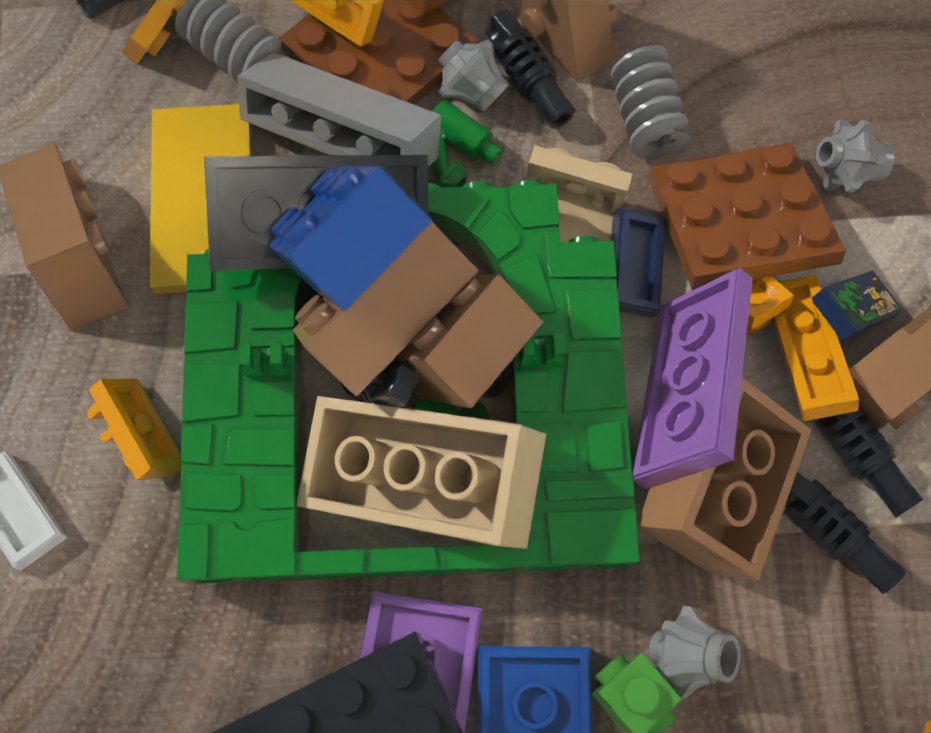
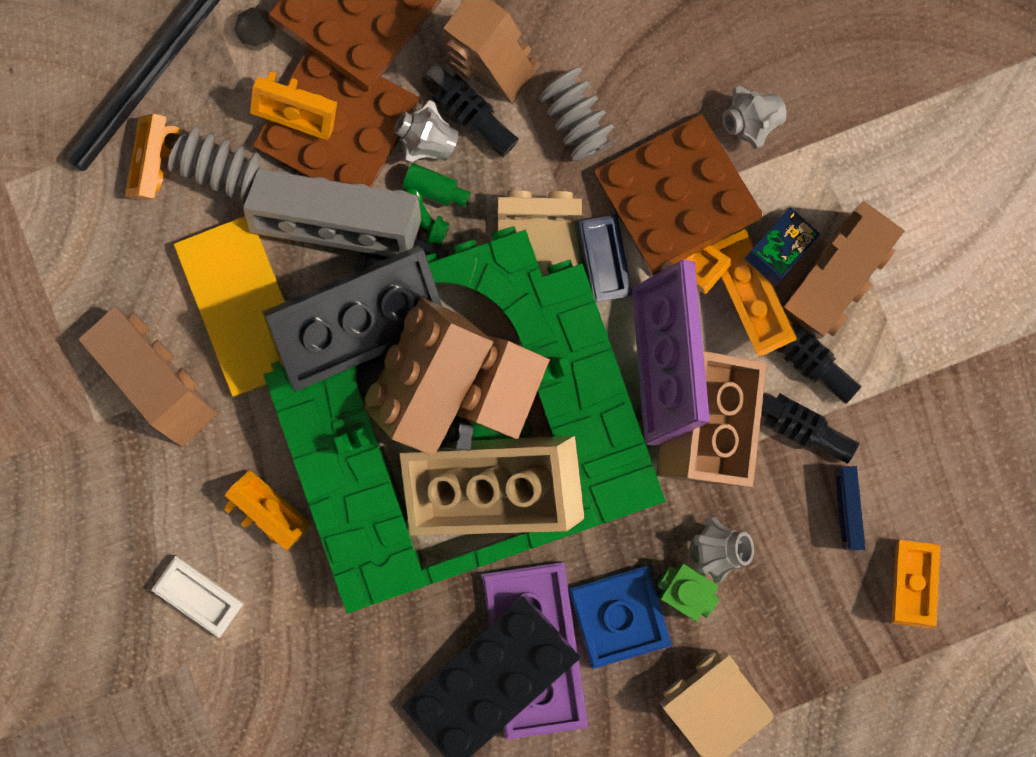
camera: 20 degrees left, 15 degrees up
(348, 232) = (392, 350): blue brick -> none
(877, 653) = (849, 508): none -> dark blue tile

